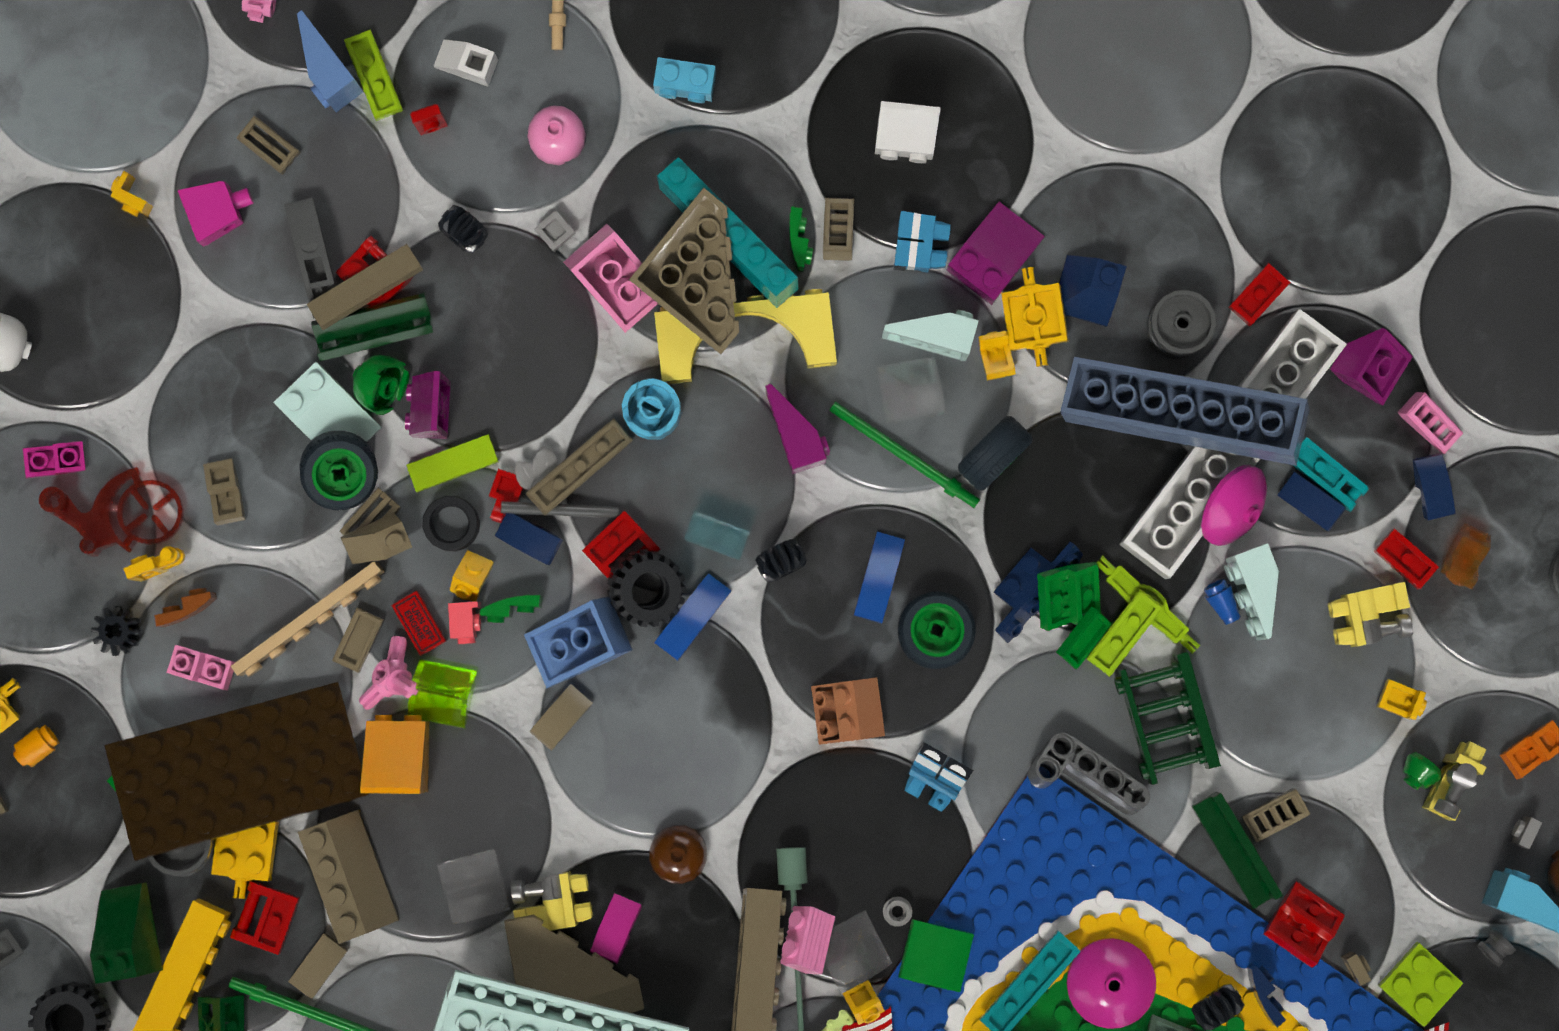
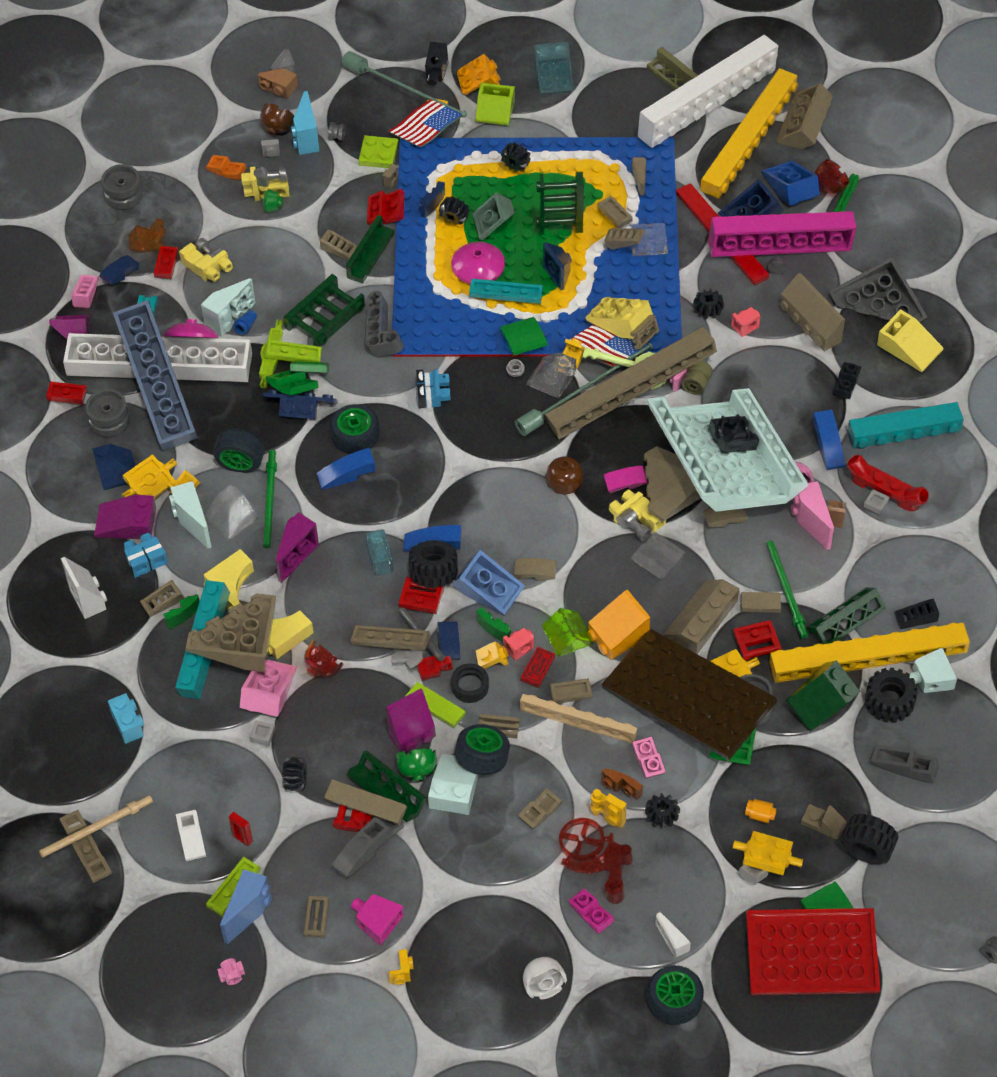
camera: 125 degrees left, 30 degrees down
(377, 540) = (506, 706): dark tan slope -> none
(390, 676) = (585, 657): bright pink bush -> none
(556, 135) = (203, 767): bright pink cylinder -> none
(603, 362) = (321, 661): none -> clear red cylinder
(651, 409) = (331, 621): medium azure brick -> none
(781, 560) = (370, 514): black gear -> none
(807, 939) = (560, 389): bright pink brick -> none
(848, 711) = (428, 444): nougat slope -> none
(1311, 501) = (164, 312): dark blue slope -> none
(1402, 700) = (241, 225): yellow bracket -> none

